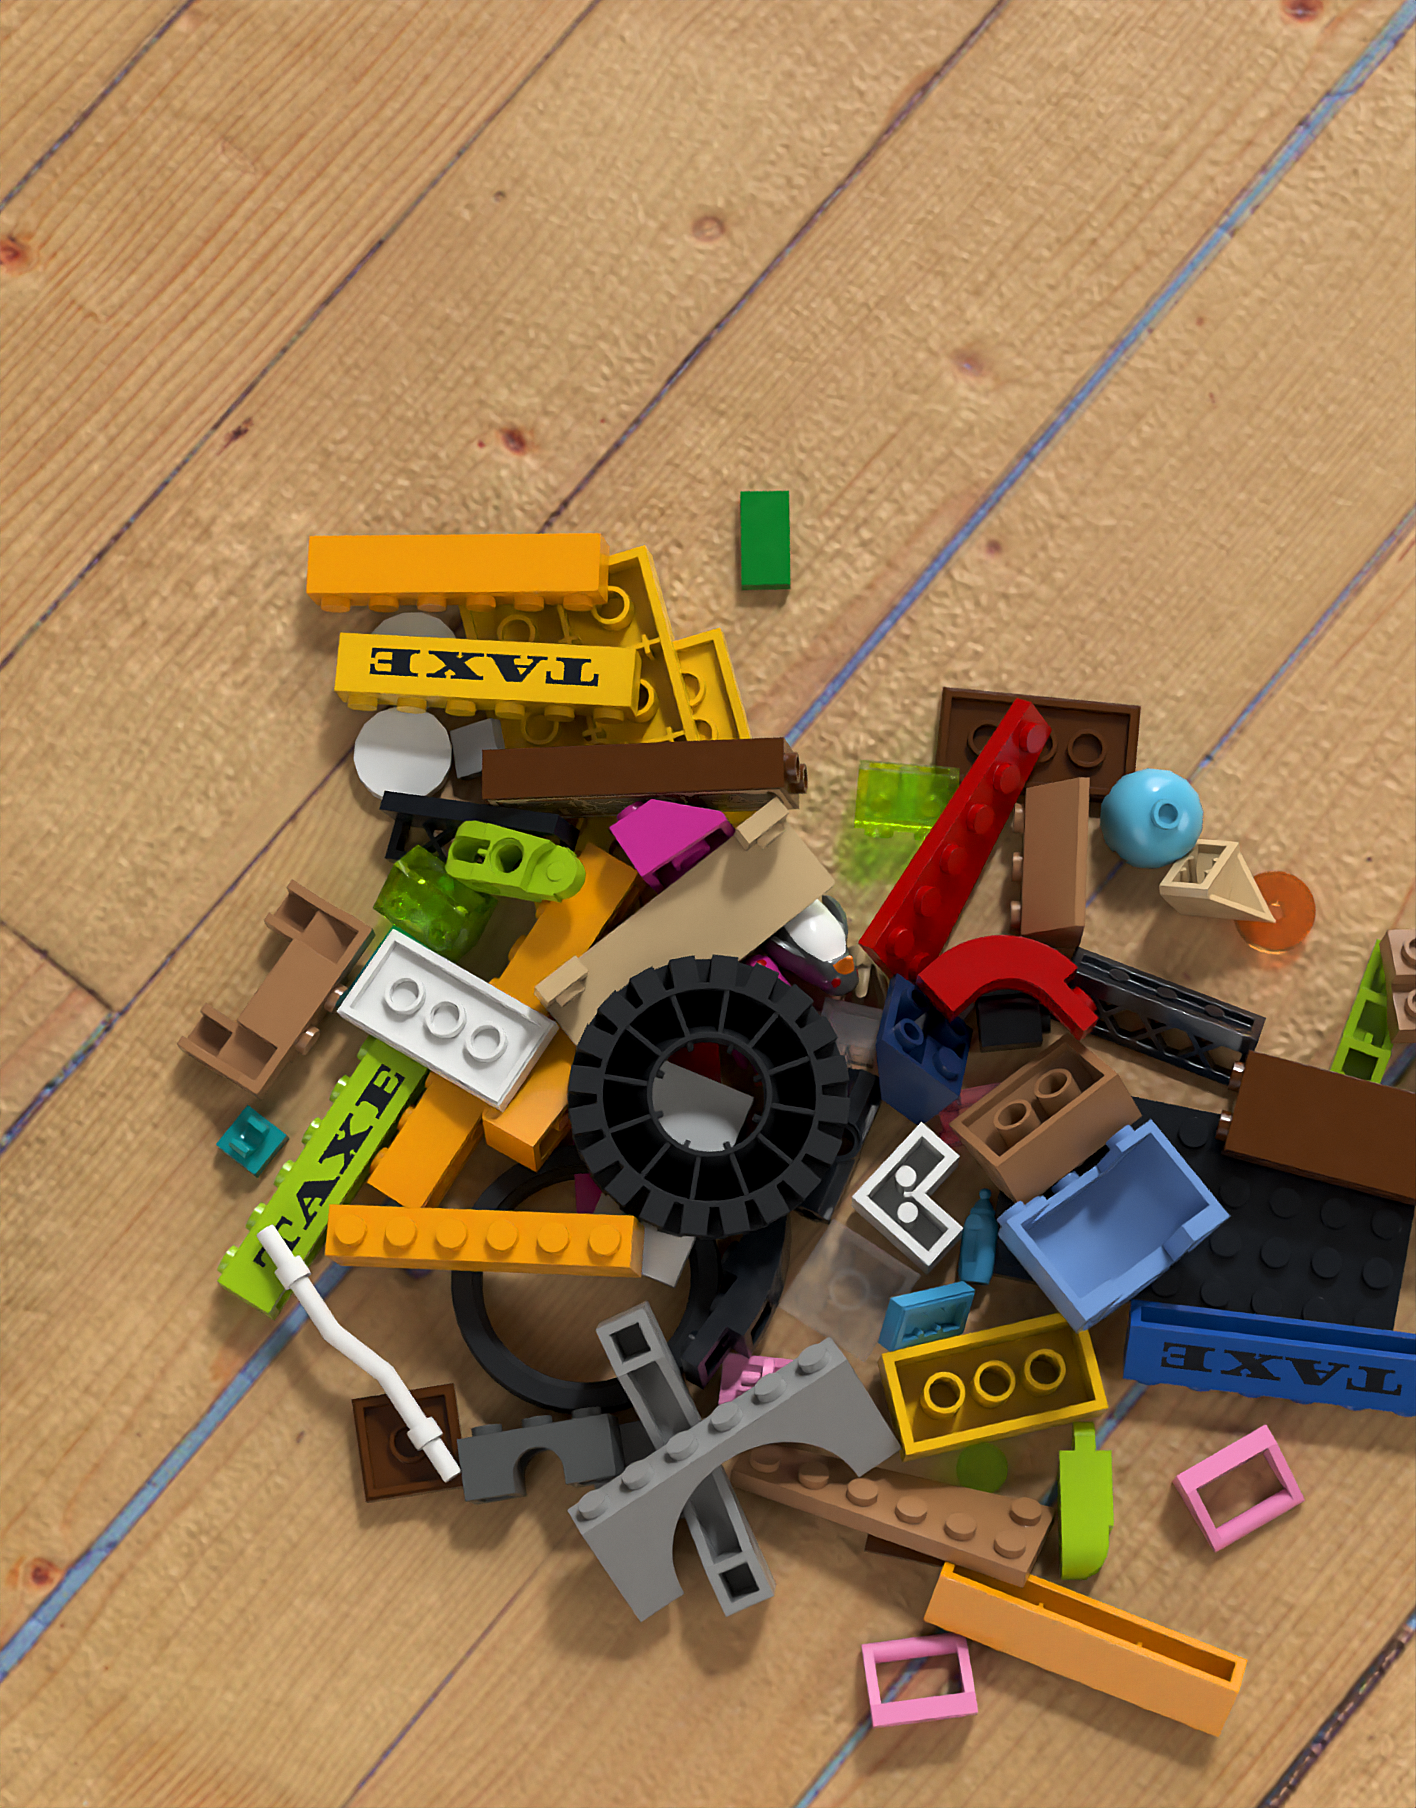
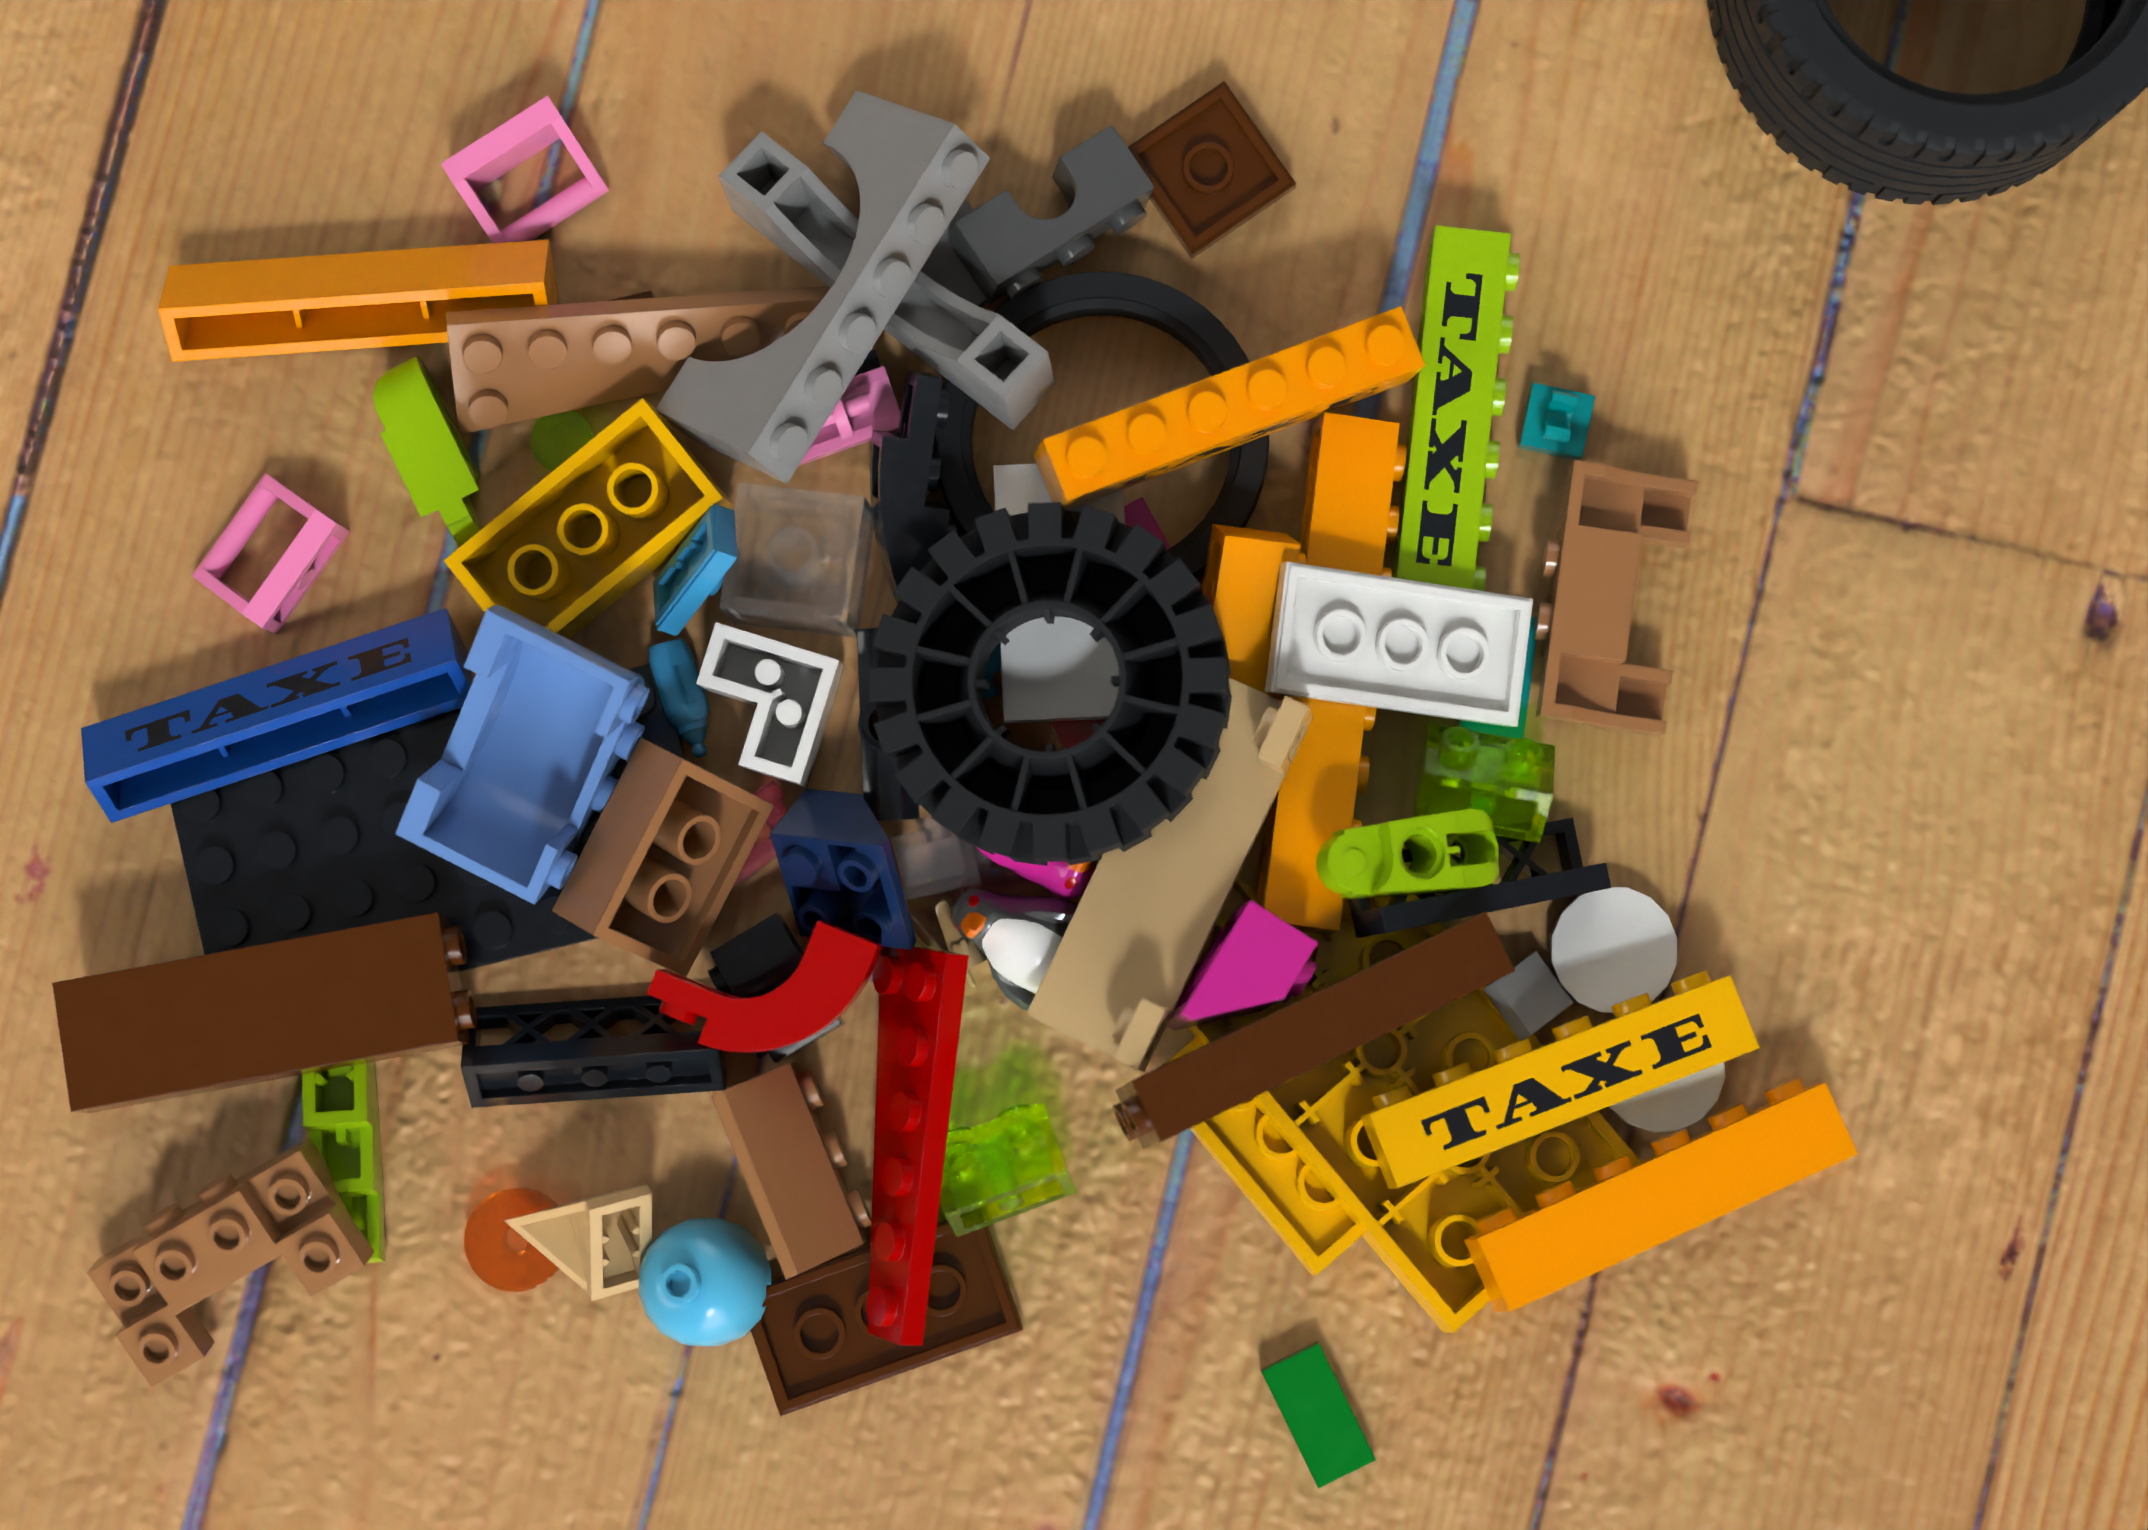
camera: 155 degrees right, 10 degrees up
(423, 1431) = (1427, 276): white bar -> none

